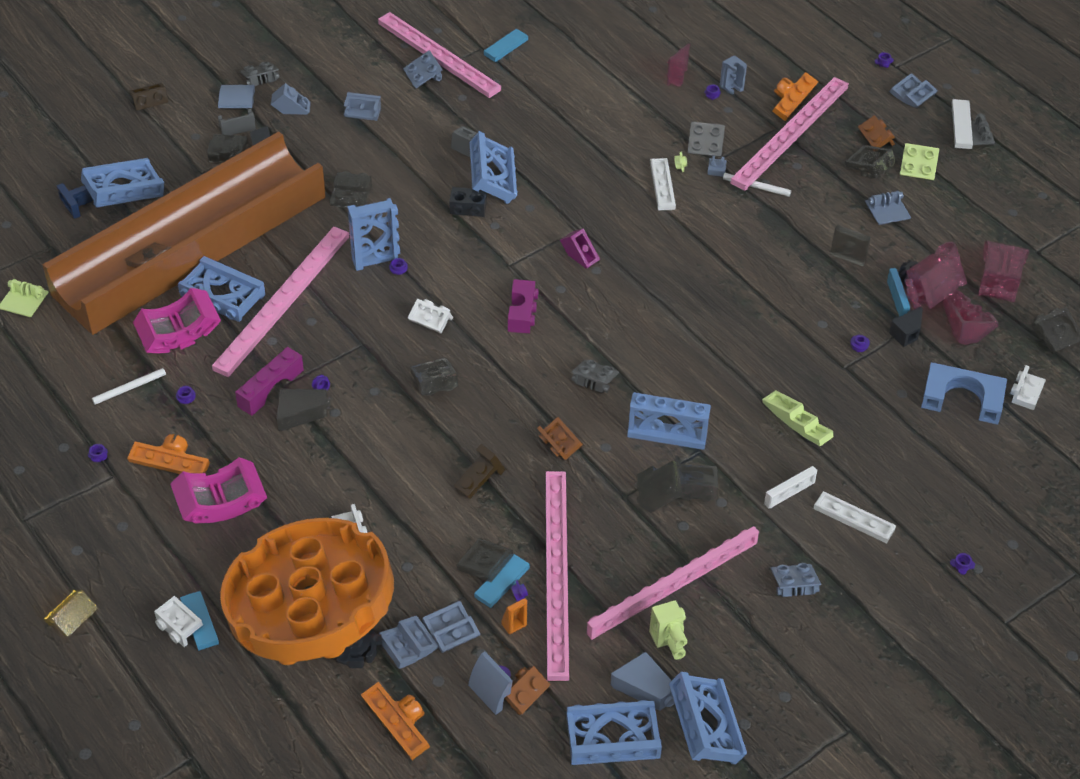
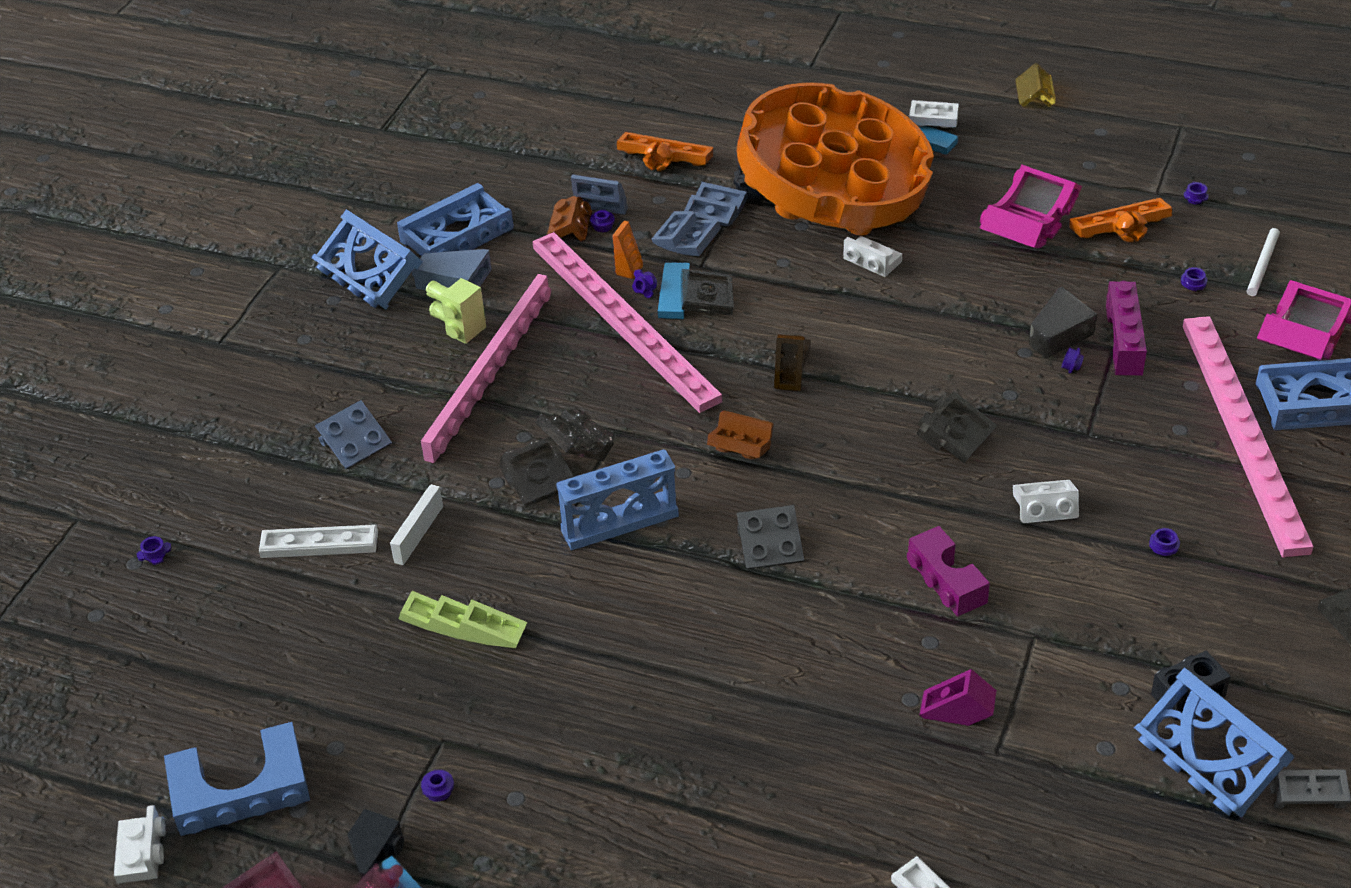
camera: 150 degrees right, 5 degrees down
(365, 215) = (1219, 503): medium blue fence -> none

